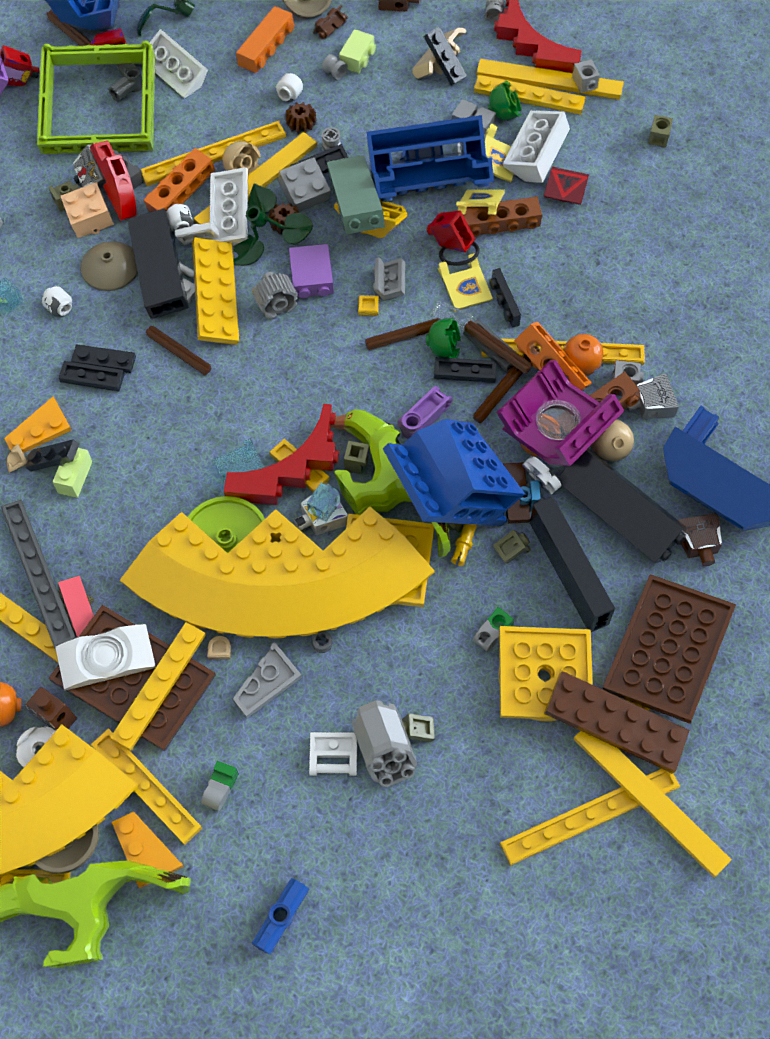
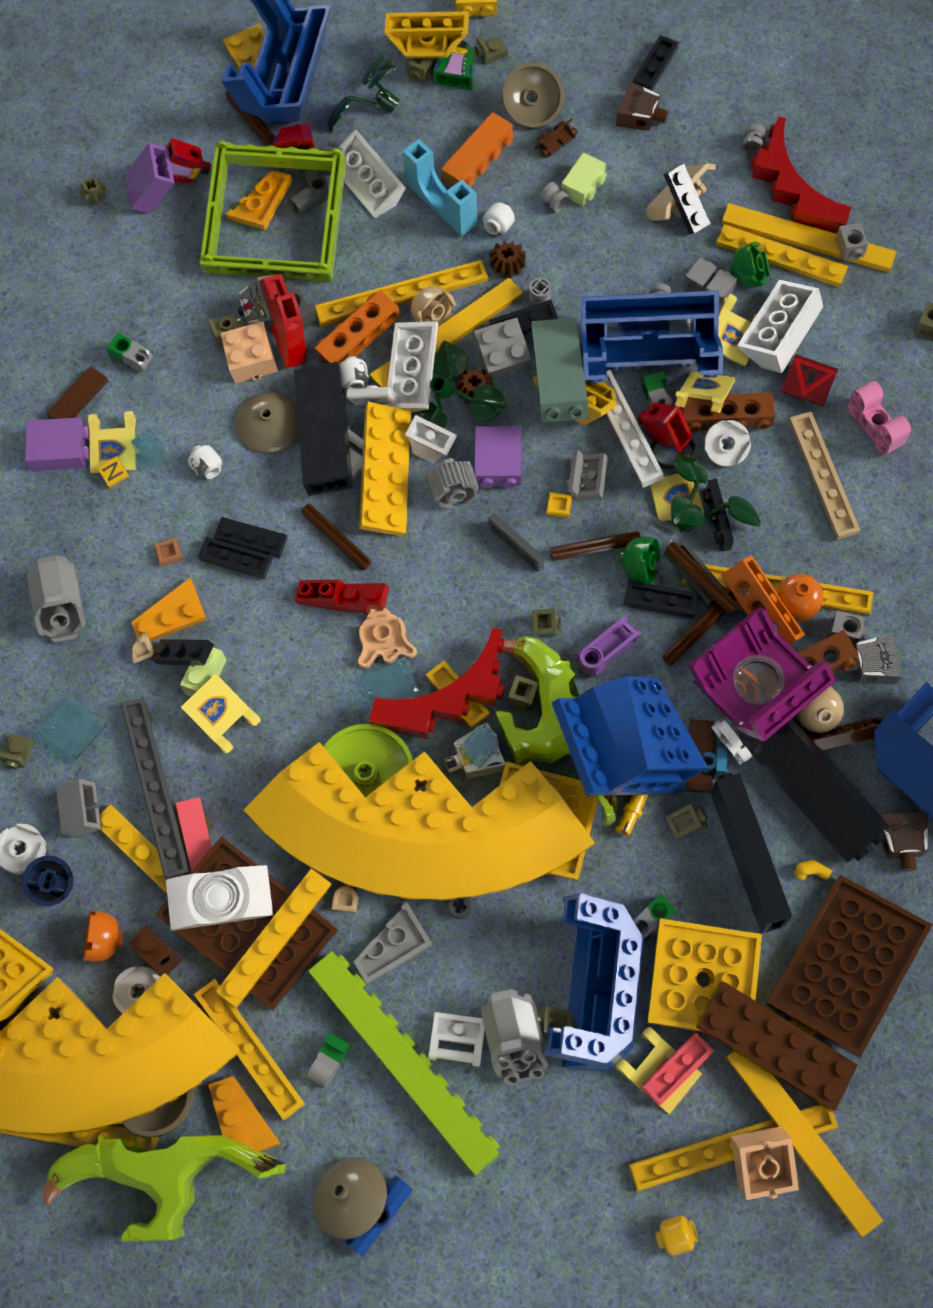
camera: 10 degrees right, 5 degrees up
(31, 378) = (168, 552): none -> nougat tile
(86, 500) = (216, 709): none -> light yellow flag
(87, 94) = (263, 202): none -> light orange wing
(188, 397) = (341, 596): none -> red slope
(228, 426) = (383, 637): none -> light nougat tile
(250, 263) = (429, 439): none -> white slope
(251, 79) = (455, 206): none -> medium azure arch
(259, 909) = (359, 1204): none -> dark tan dish
(289, 781) = (405, 1065): none -> lime brick
(335, 337) = (516, 542): none -> dark grey tile
(369, 397) = (546, 622): none -> olive brick
(423, 243) = (632, 438): none -> white plate
(437, 203) = (653, 388): none -> leg
(456, 688) = (602, 985): none -> blue wedge
(482, 297) = (688, 515): none -> dark green plant
(514, 234) = (740, 441): none -> white plate
(520, 760) = (651, 1063): none -> light yellow flag
(531, 754) = (676, 1069): none -> coral tile
(551, 897) = (677, 1235): none -> yellow head
(589, 258) = (824, 476): none -> tan plate
(620, 823) = (764, 1163): none -> light nougat brick
(625, 572) = (811, 867): none -> yellow arm
(632, 217) = (867, 408): none -> bright pink beam
(639, 459) = (846, 733): none -> reddish brown beam

